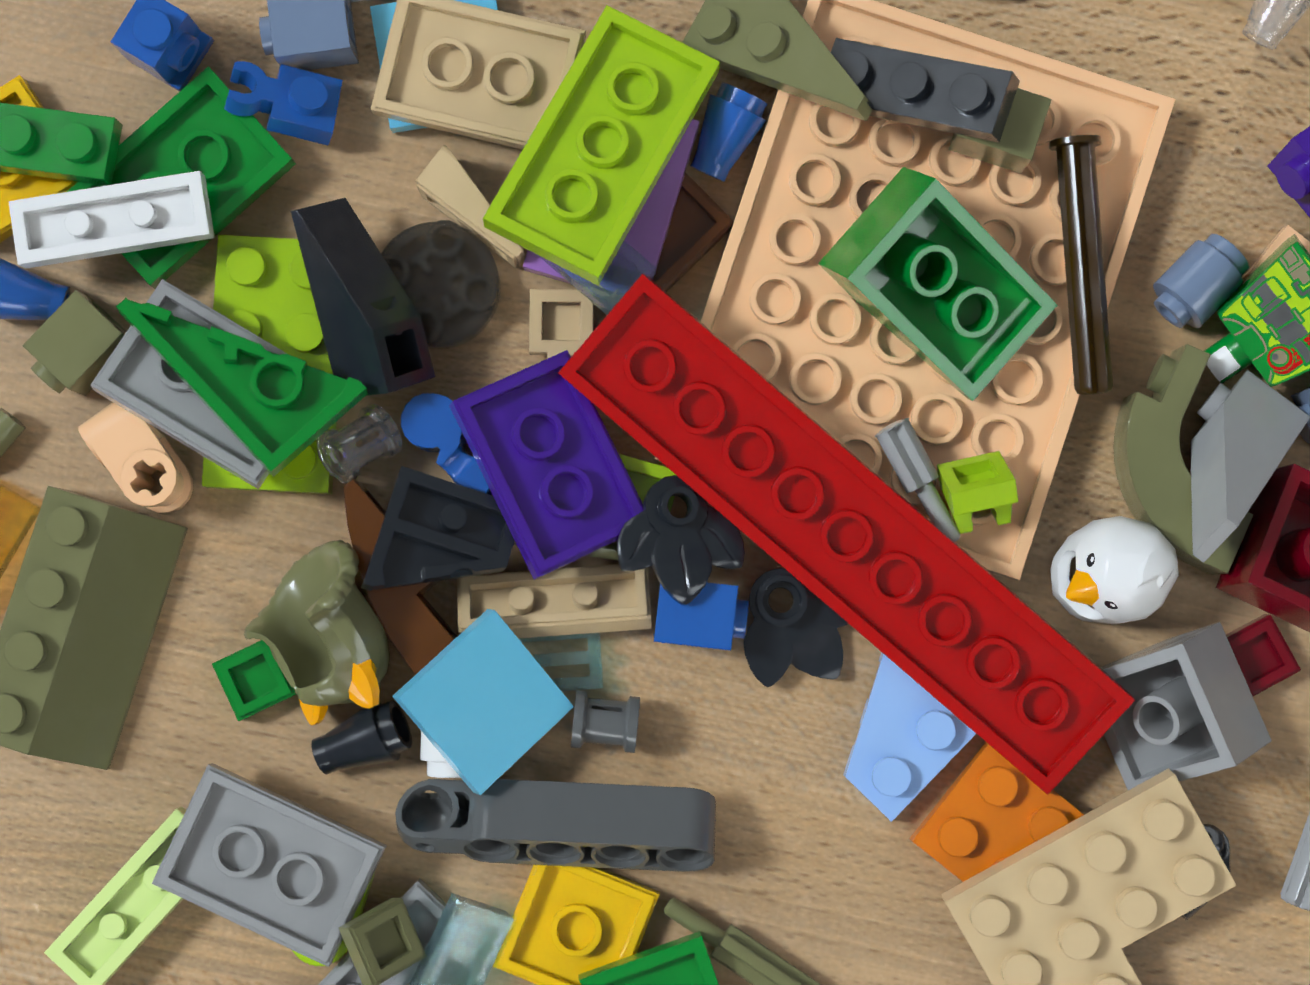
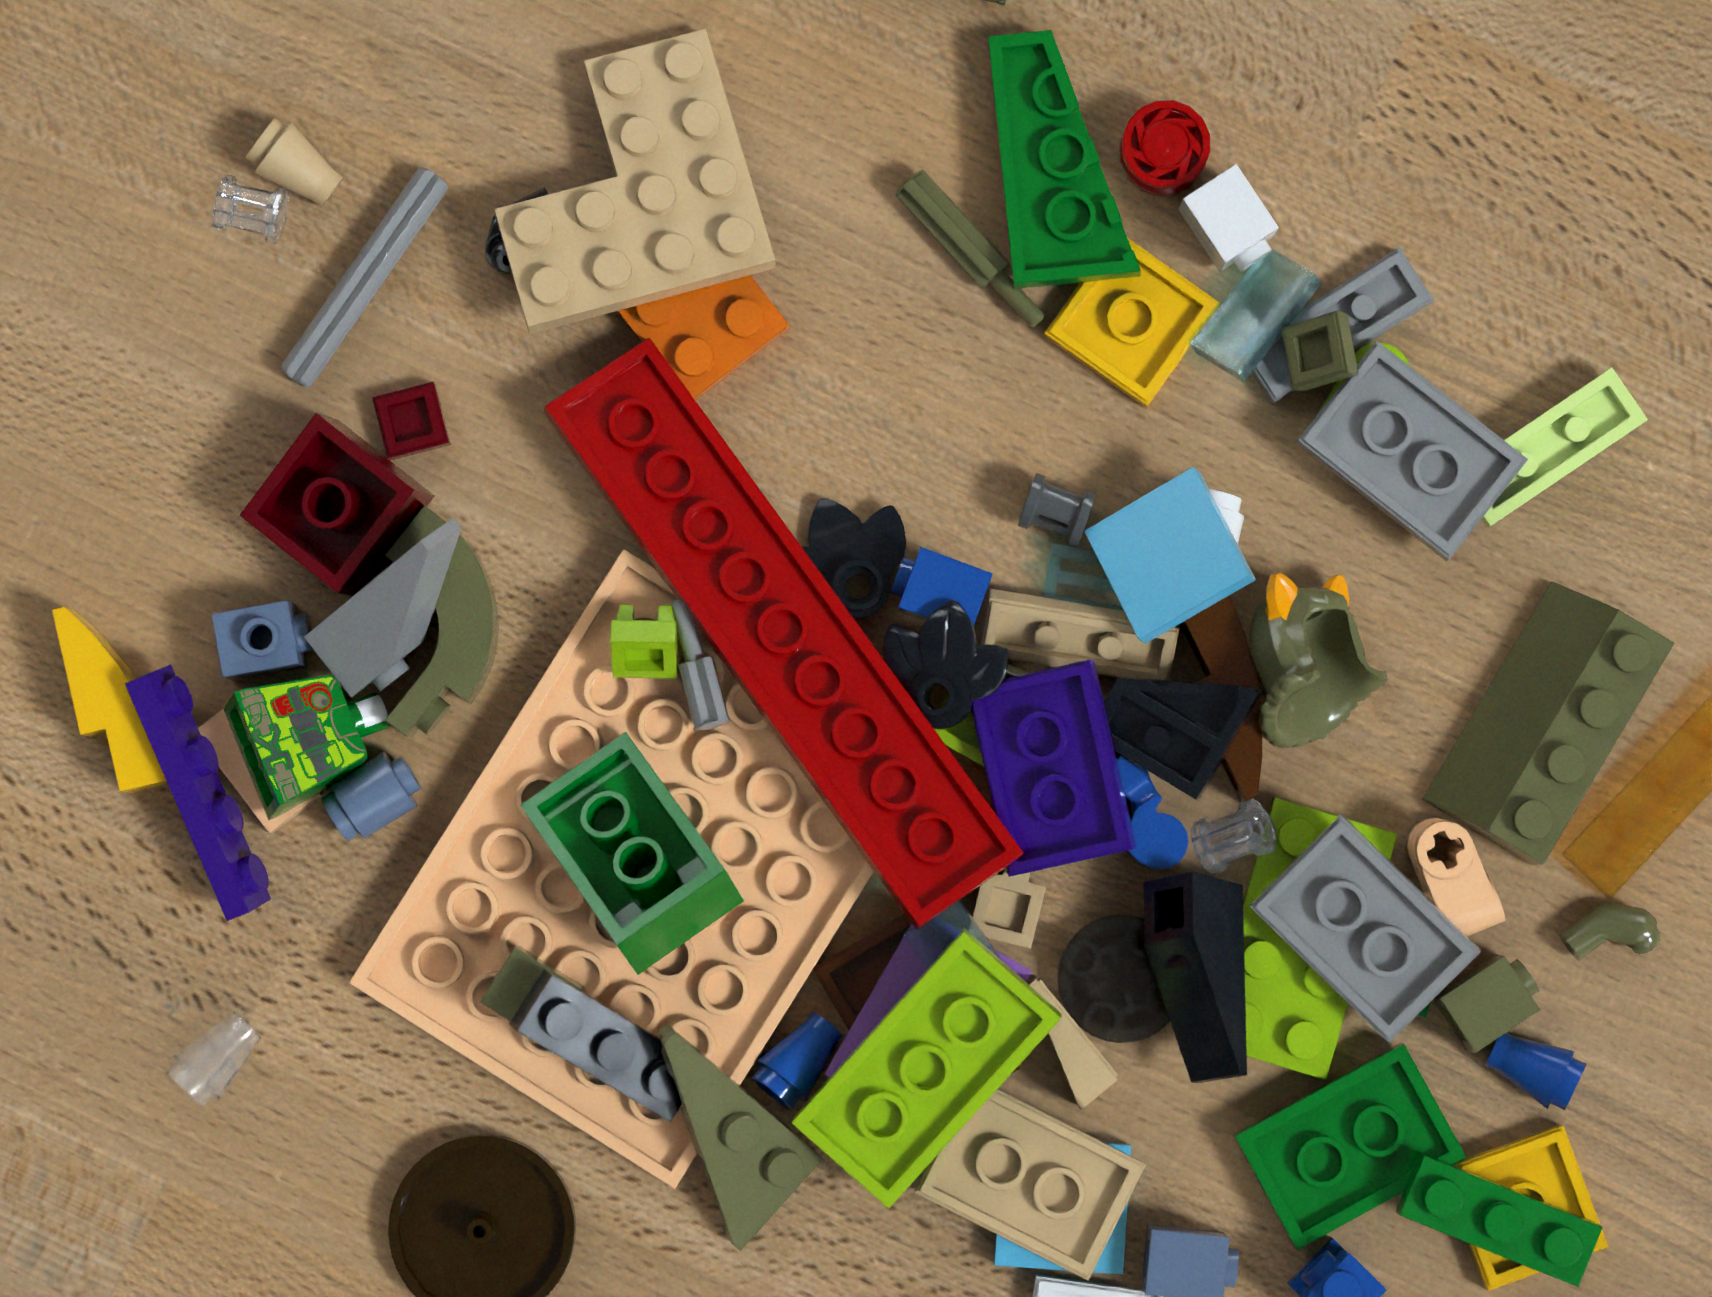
camera: 170 degrees left, 0 degrees up
(111, 219) = (1425, 1113): white plate -> none
(252, 680) = (1390, 633): green tile -> none
(262, 397) = (1315, 897): green wing -> none
(296, 101) = (1218, 1194): blue plate -> none
(364, 739) = (1294, 548): black cone -> none
(562, 824) = (1121, 421): dark grey piece -> none
(901, 740) = (775, 421): light blue wing -> none
(1084, 263) = (484, 837): dark brown axle -> none
(1120, 571) = (526, 535): white piece -> none
(1187, 709) = (493, 387): light grey slope -> none

